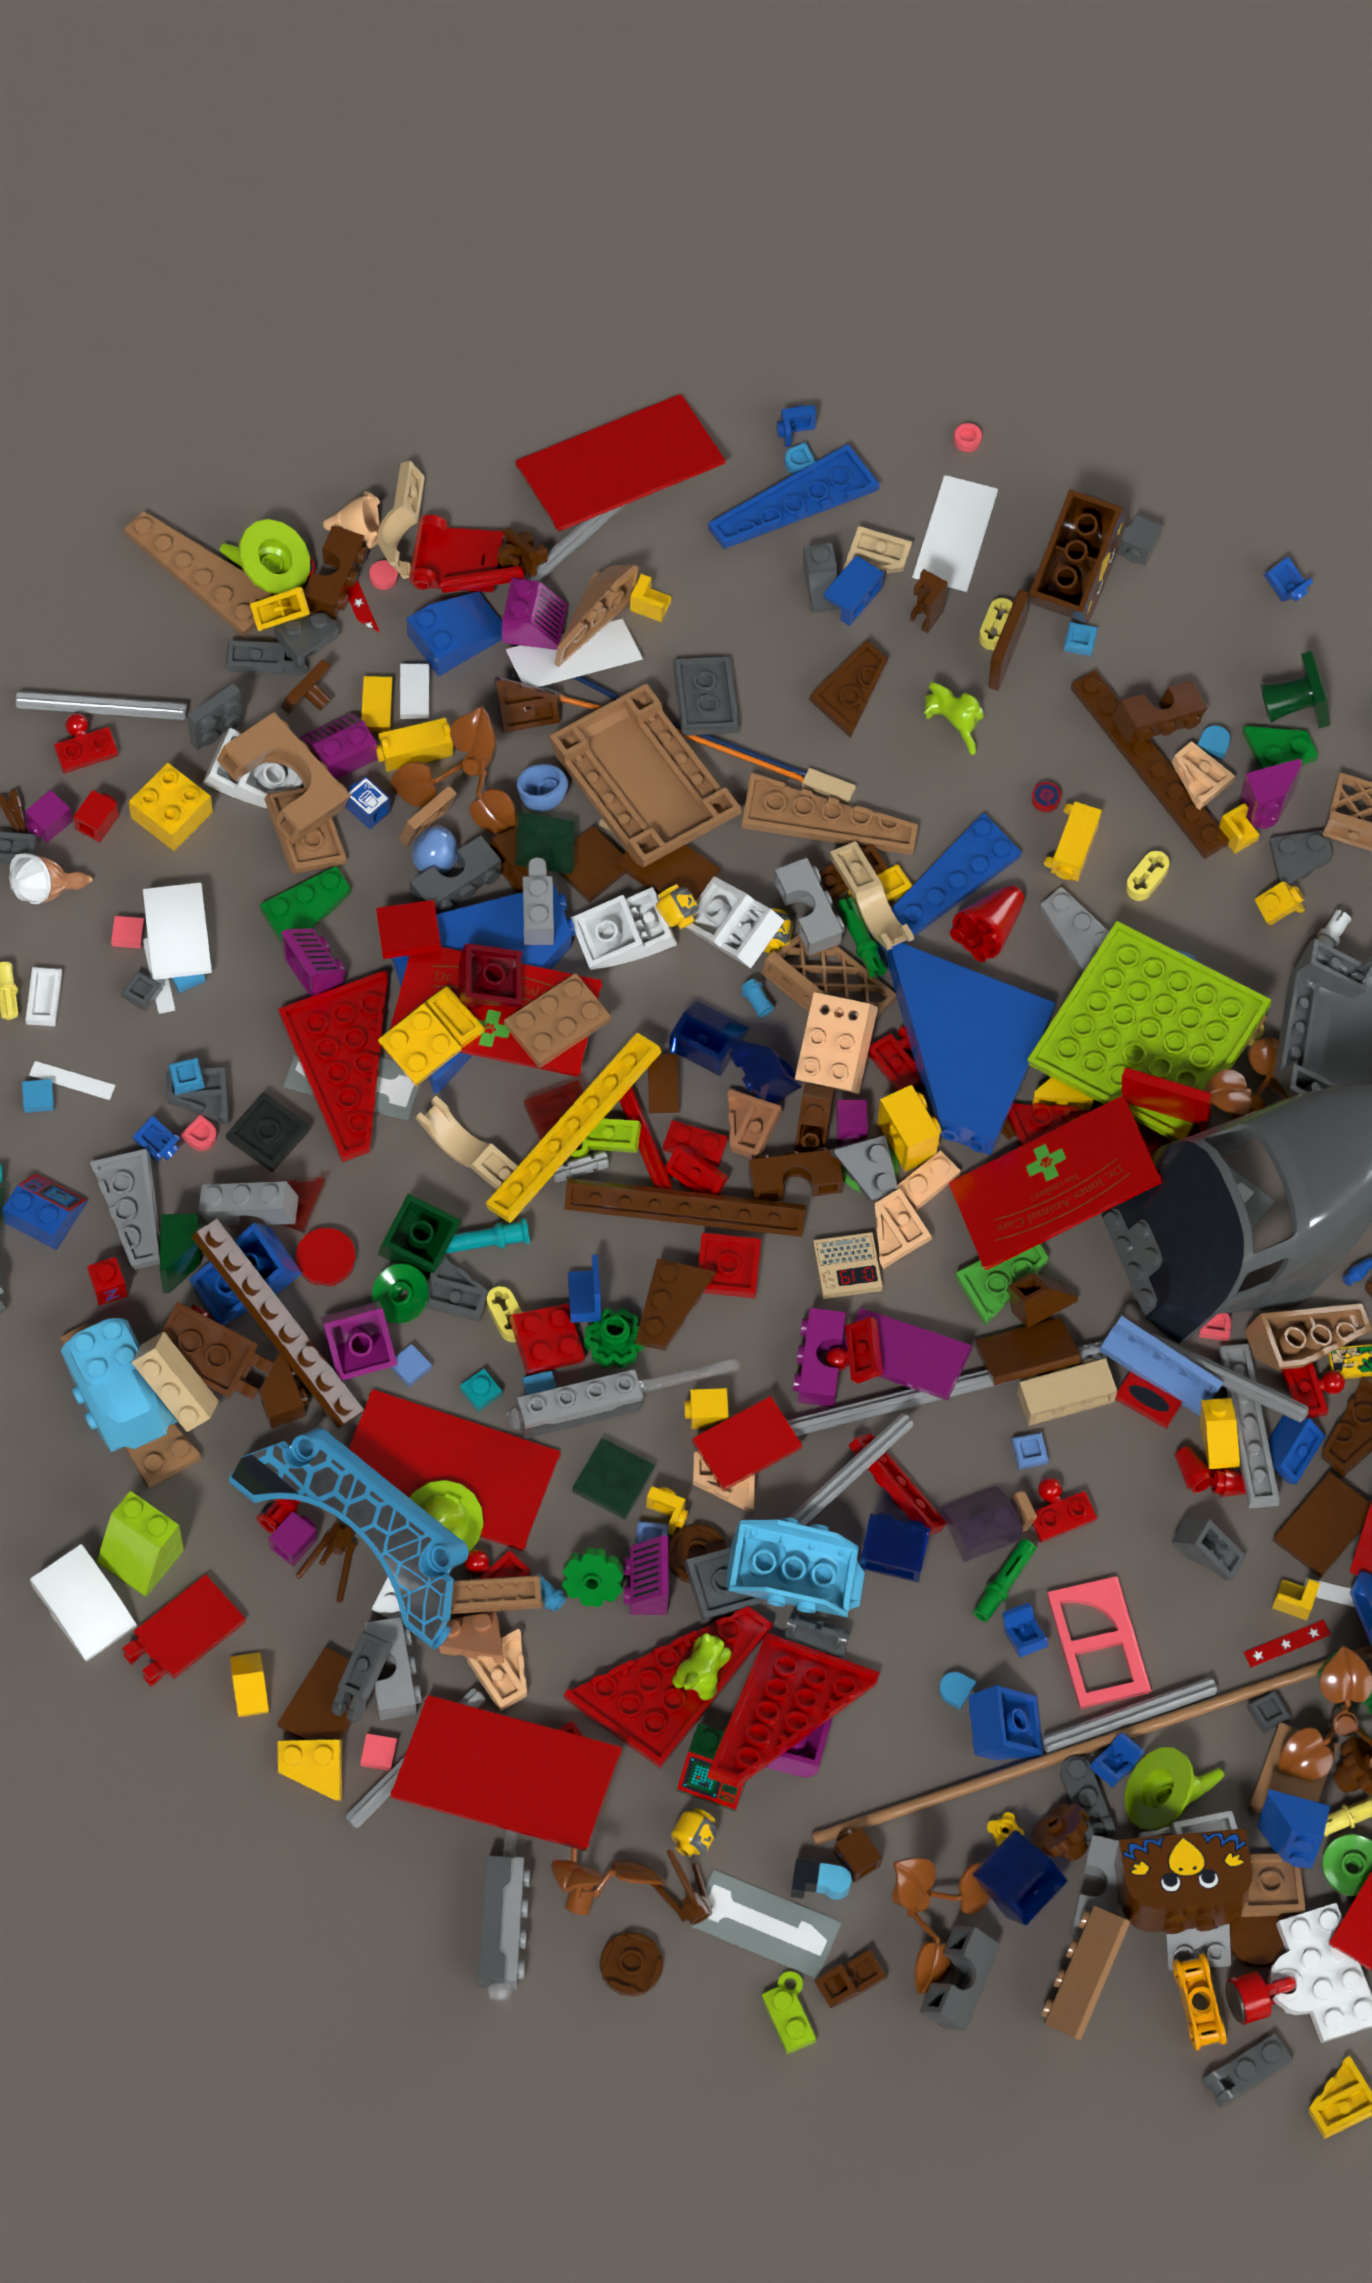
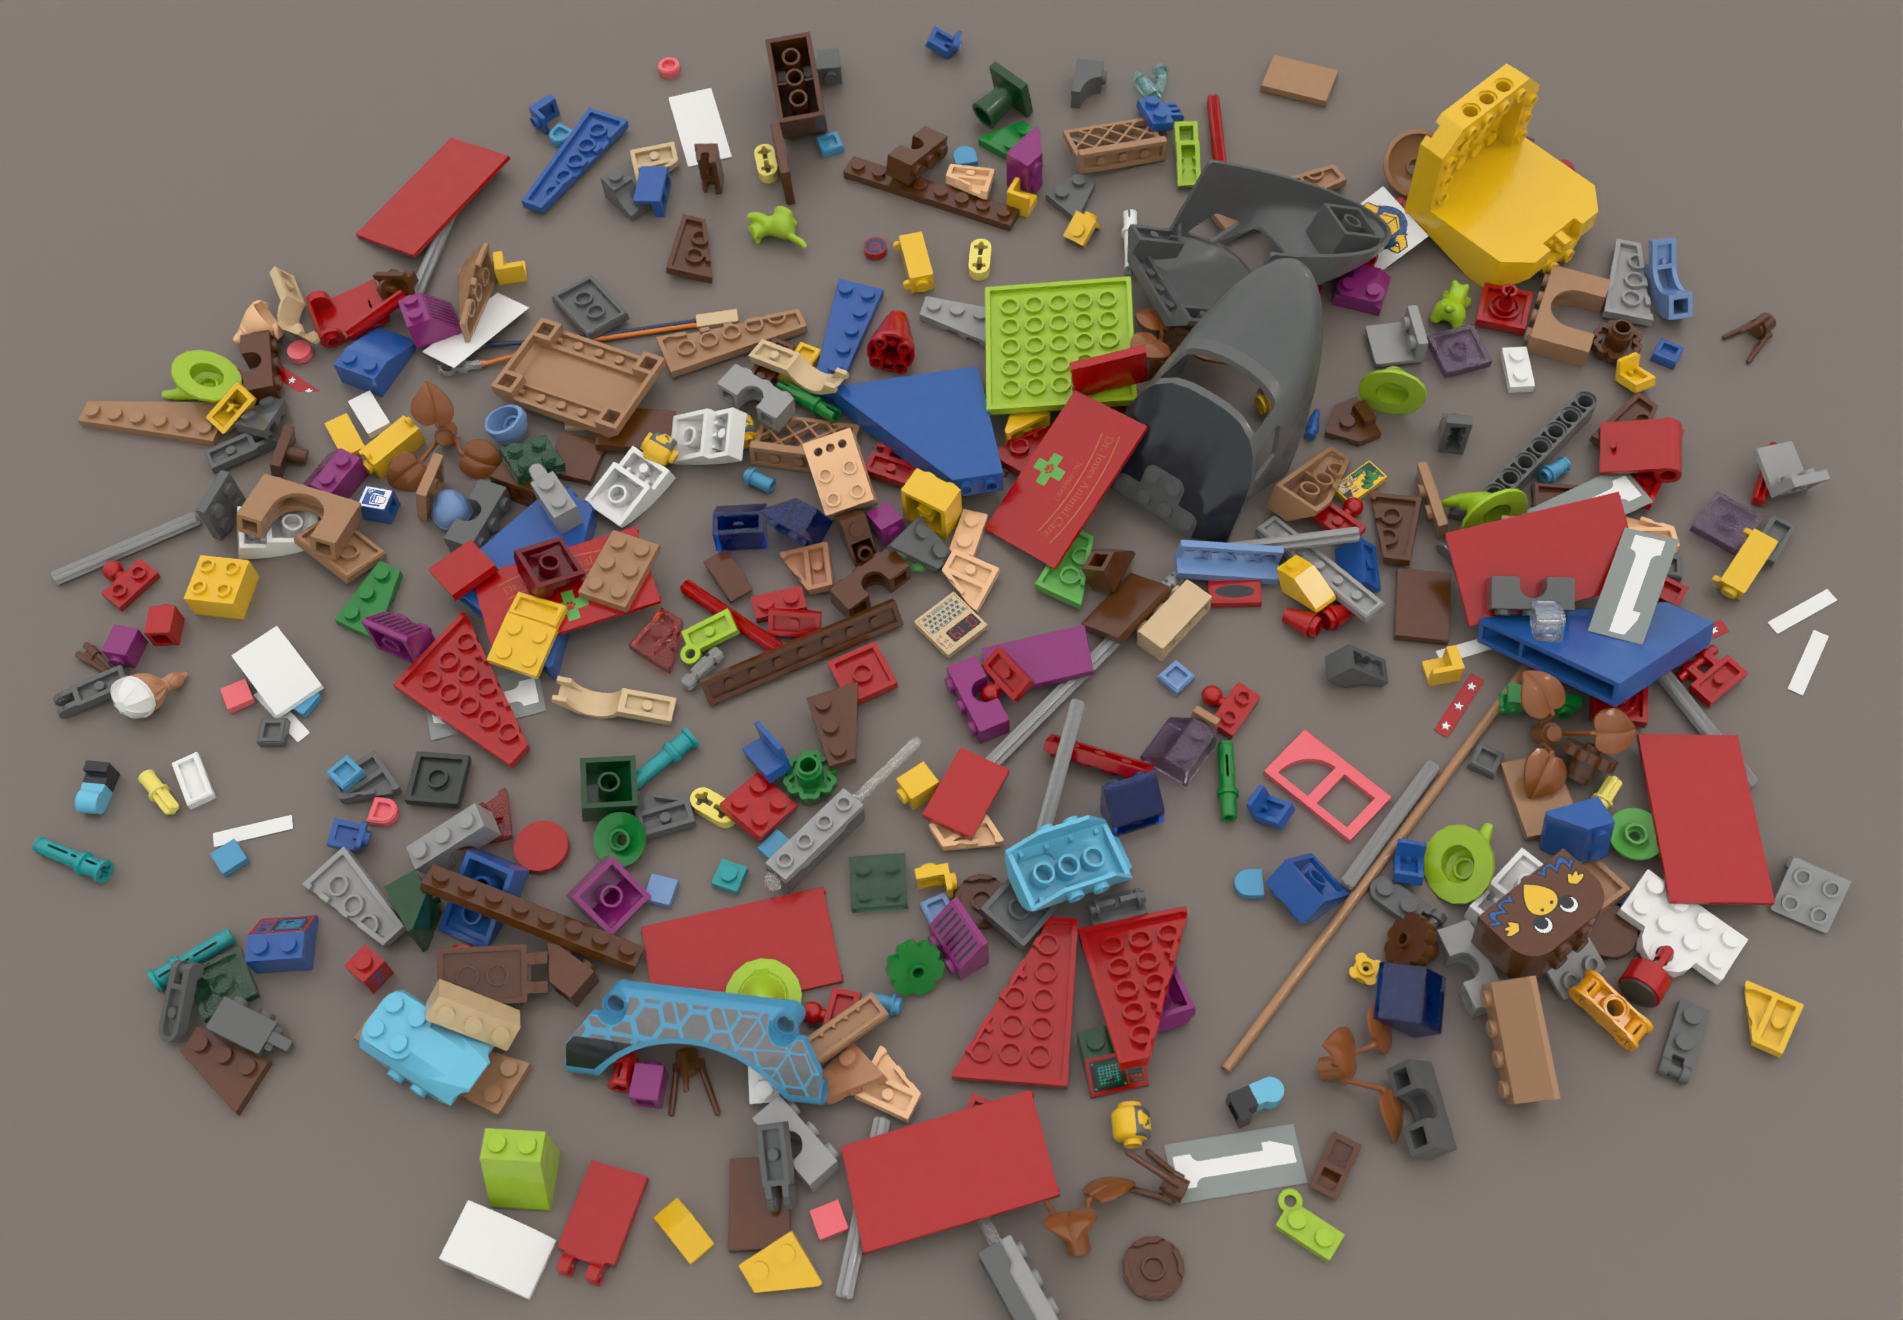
camera: 25 degrees left, 5 degrees down
(525, 705) = (459, 378): reddish brown wing -> none
(573, 1127) = (679, 642): yellow plate -> none
(701, 1668) = (1048, 988): lime animal -> none
(857, 1853) = (1268, 1058): reddish brown brick -> none
(1217, 1328) = (1247, 519): coral tile -> none

